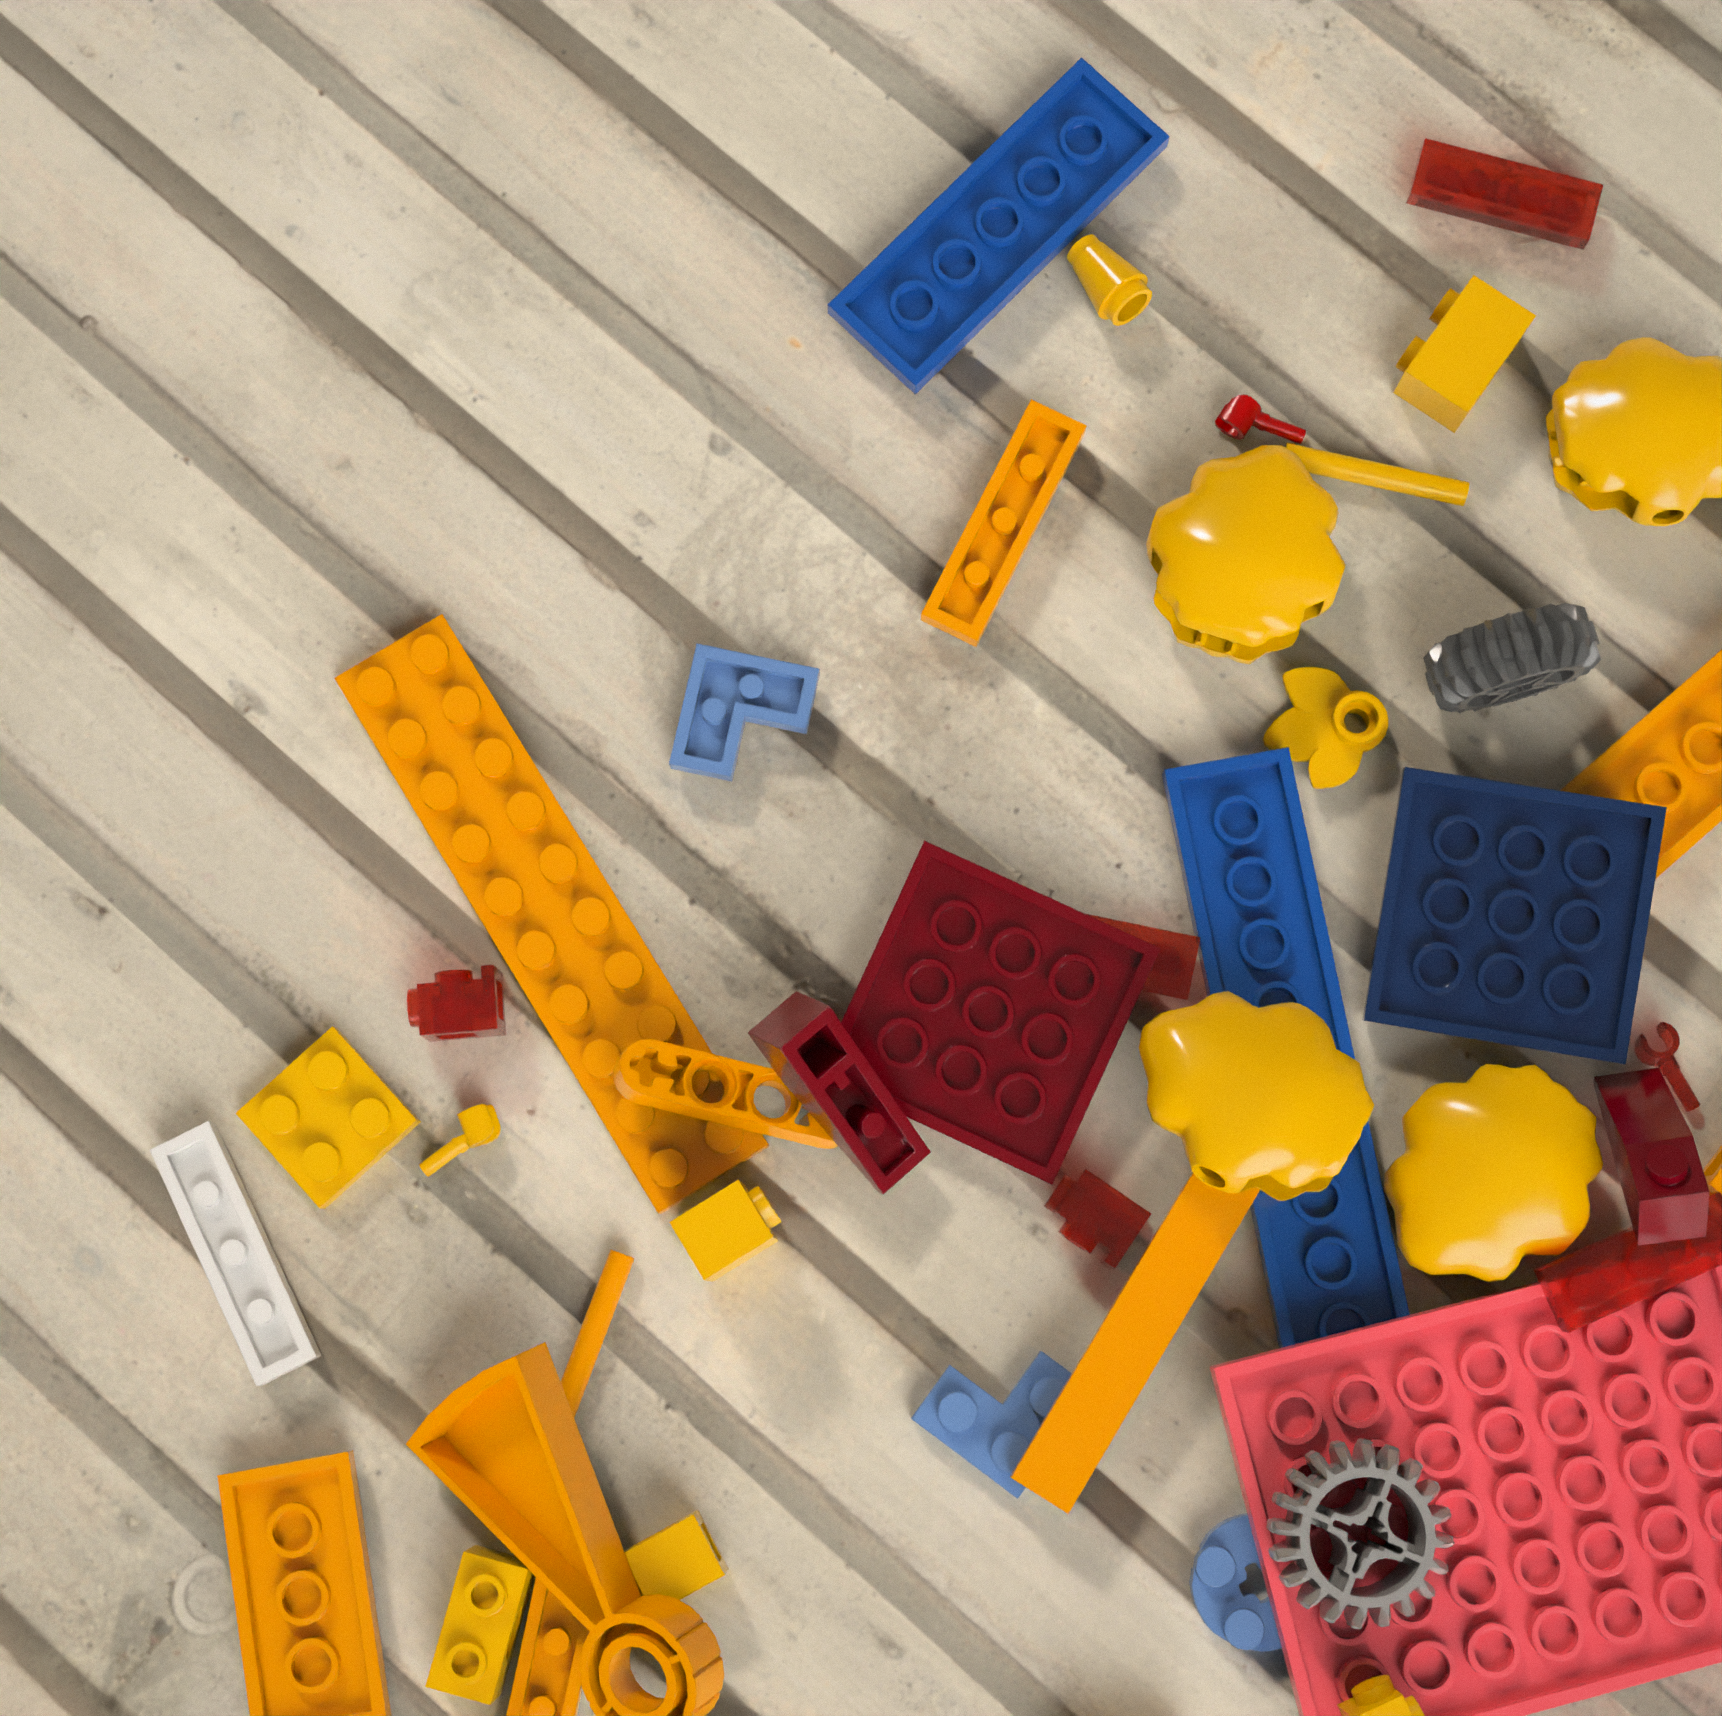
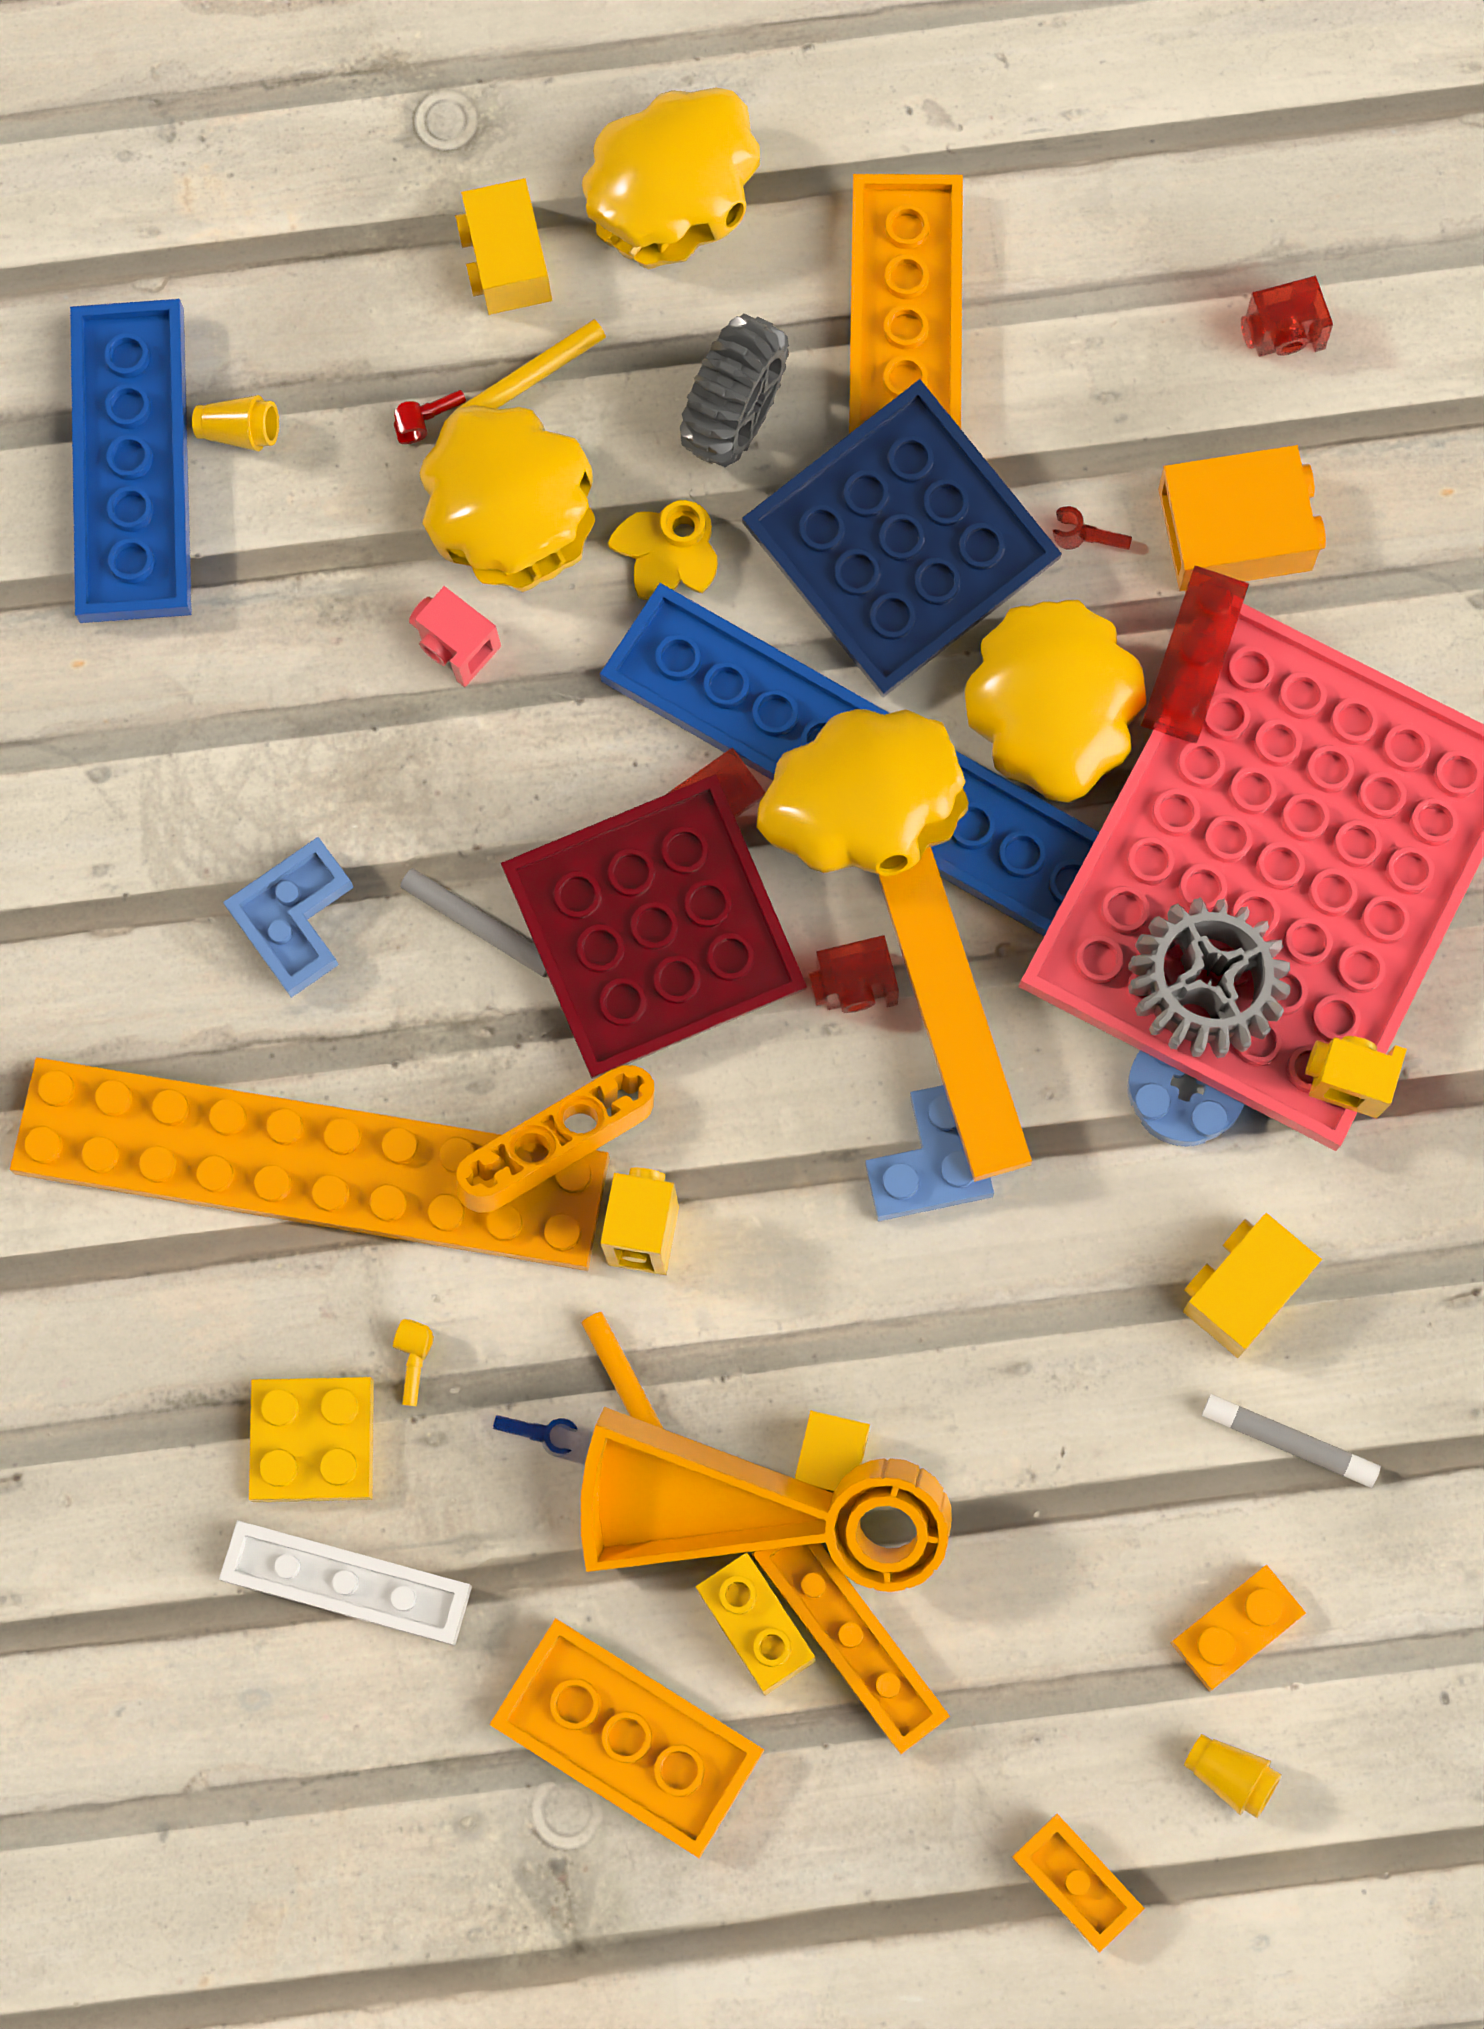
camera: 45 degrees left, 5 degrees down
(459, 1005) = (319, 1279): clear red brick -> none
(490, 1294) = (535, 1431): none -> clear blue hand
(839, 1089) = (613, 1063): dark red slope -> none
(865, 853) = (473, 920): none -> light grey bar
(1003, 523) = (335, 633): light orange plate -> none
(1090, 620) = (455, 634): none -> coral brick
(1504, 194) = (425, 129): clear red plate -> none
(1654, 1157) = (1137, 586): dark red slope -> none

